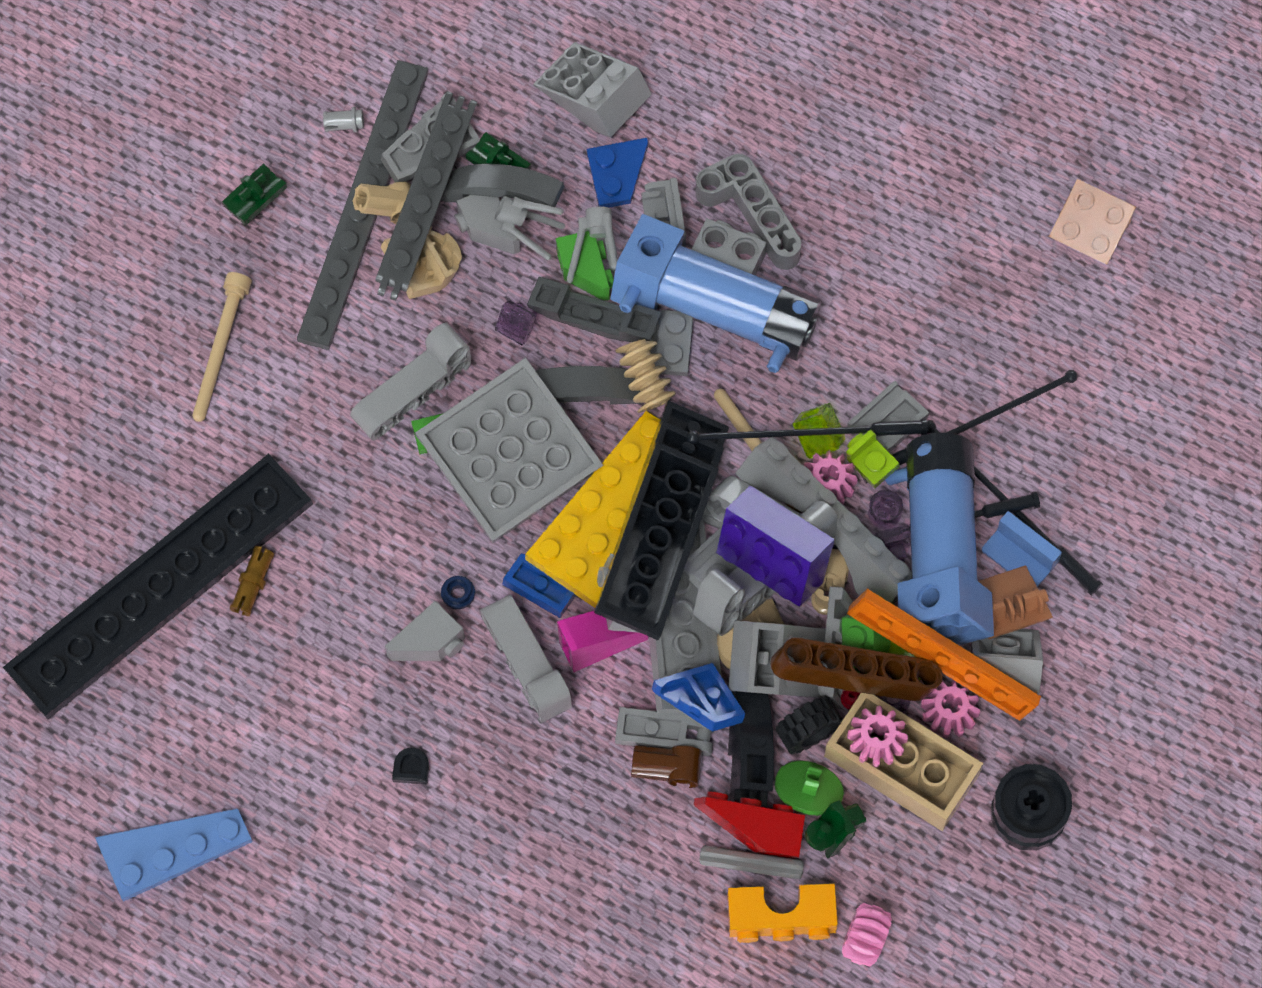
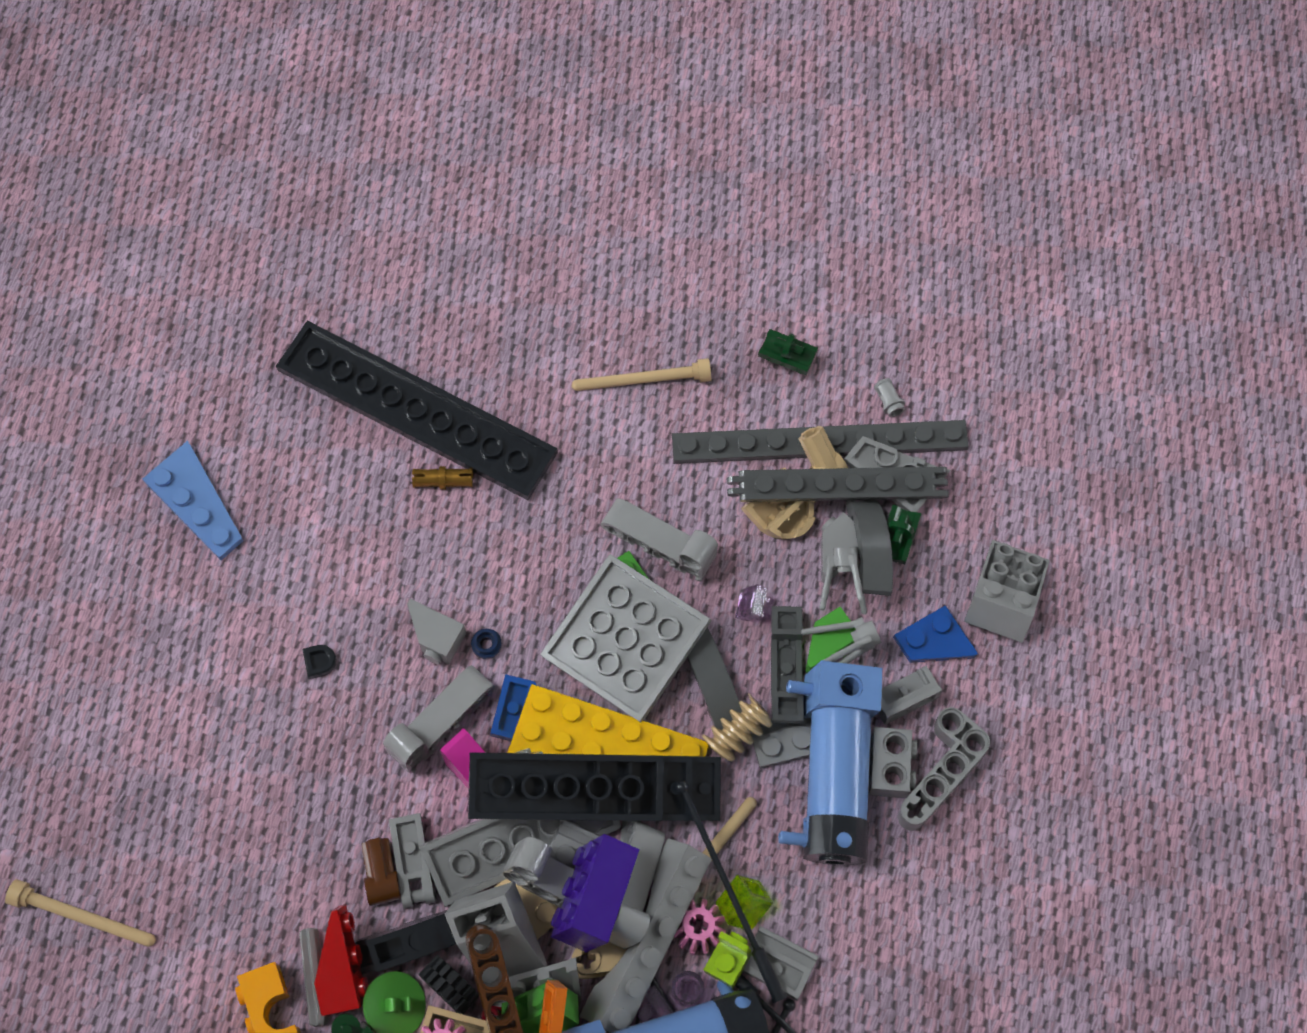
camera: 70 degrees right, 0 degrees up
(702, 696) = (439, 878): blue wing -> none

